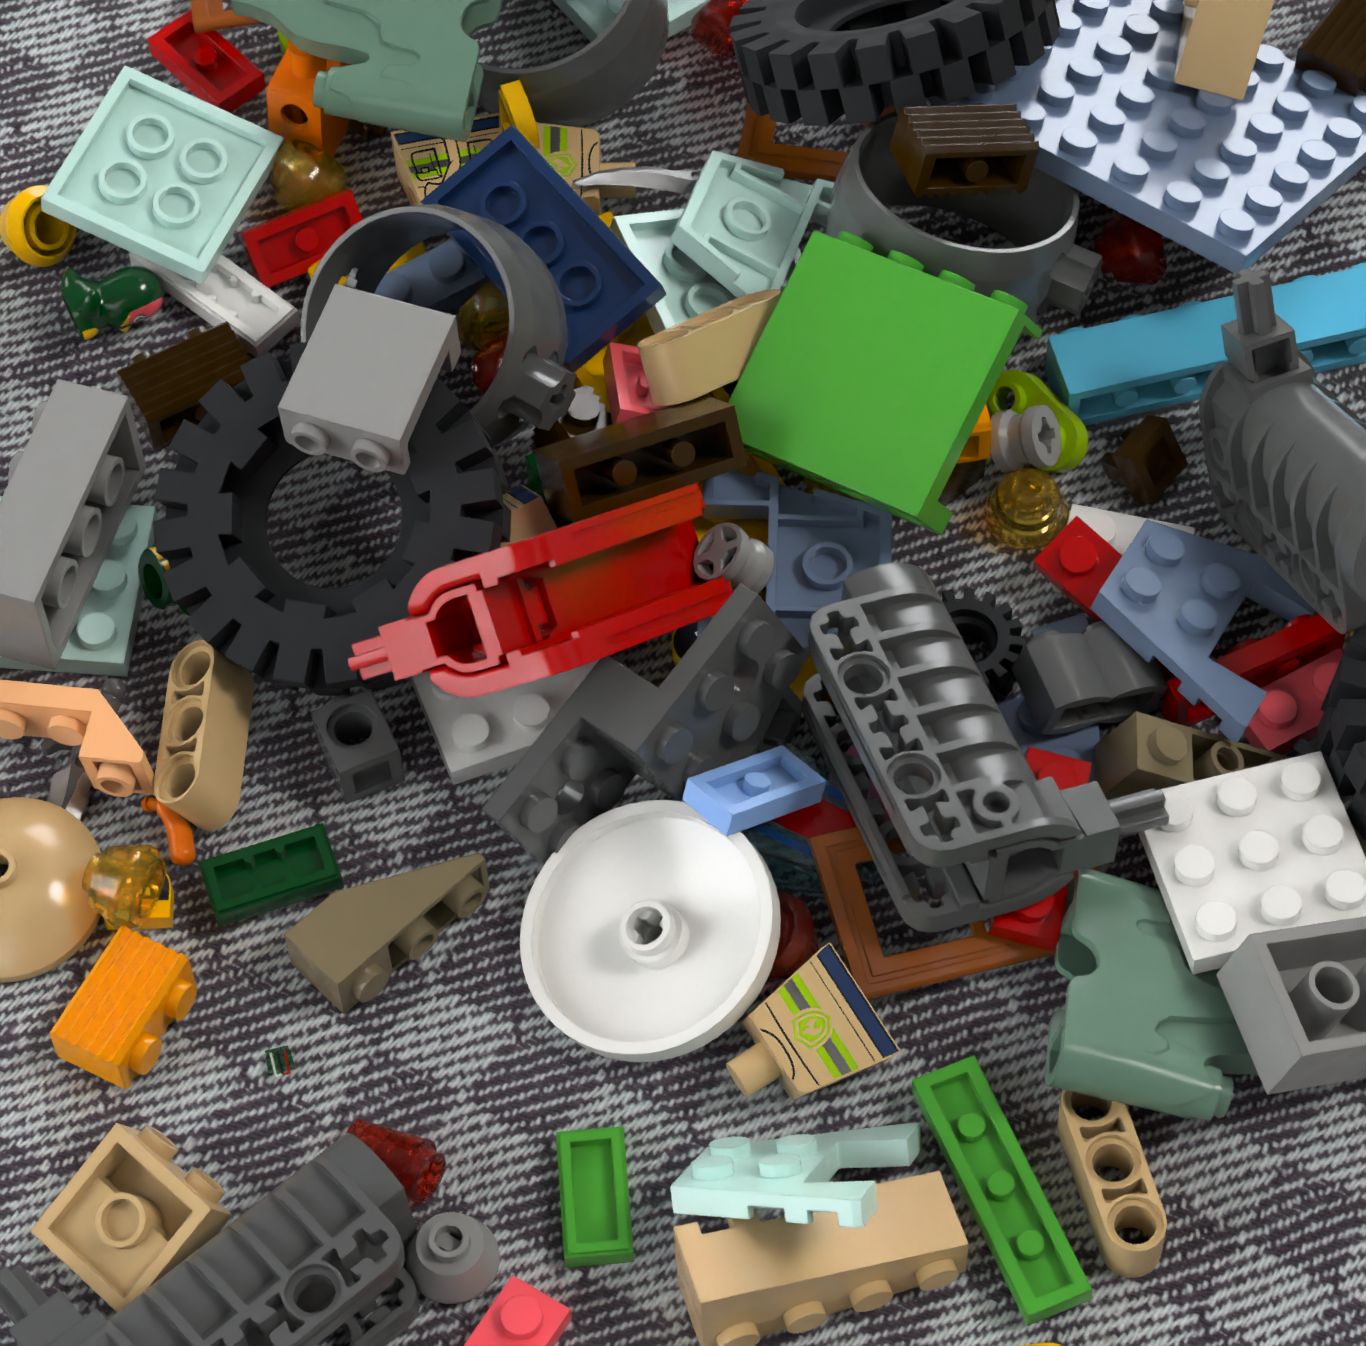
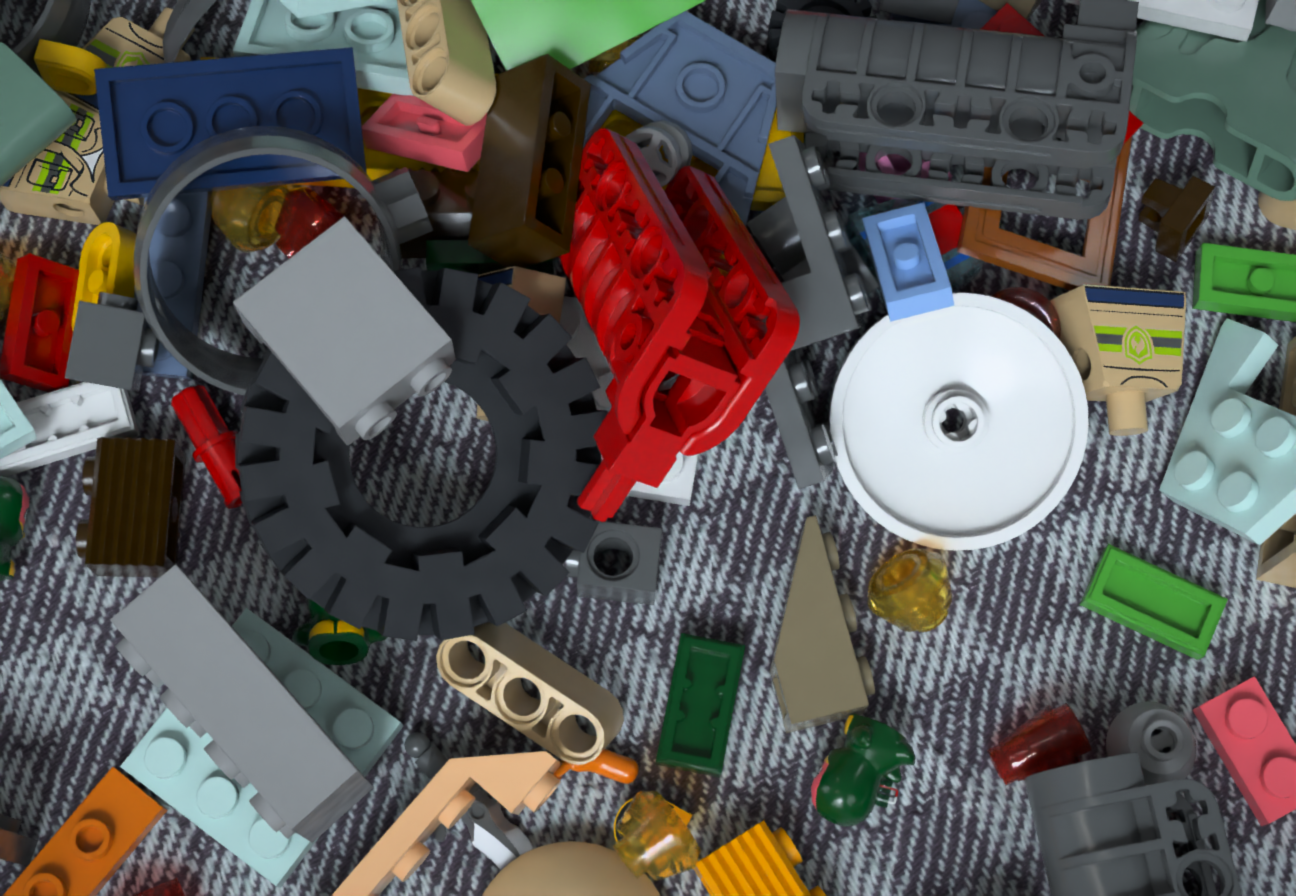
camera: 65 degrees left, 15 degrees up
(275, 1019) = (852, 775): none -> dark green animal
(287, 274) = (111, 343): none -> dark grey brick
(471, 982) = (911, 590): none -> clear yellow cone
(990, 1024) = (1176, 213): none -> dark brown tile

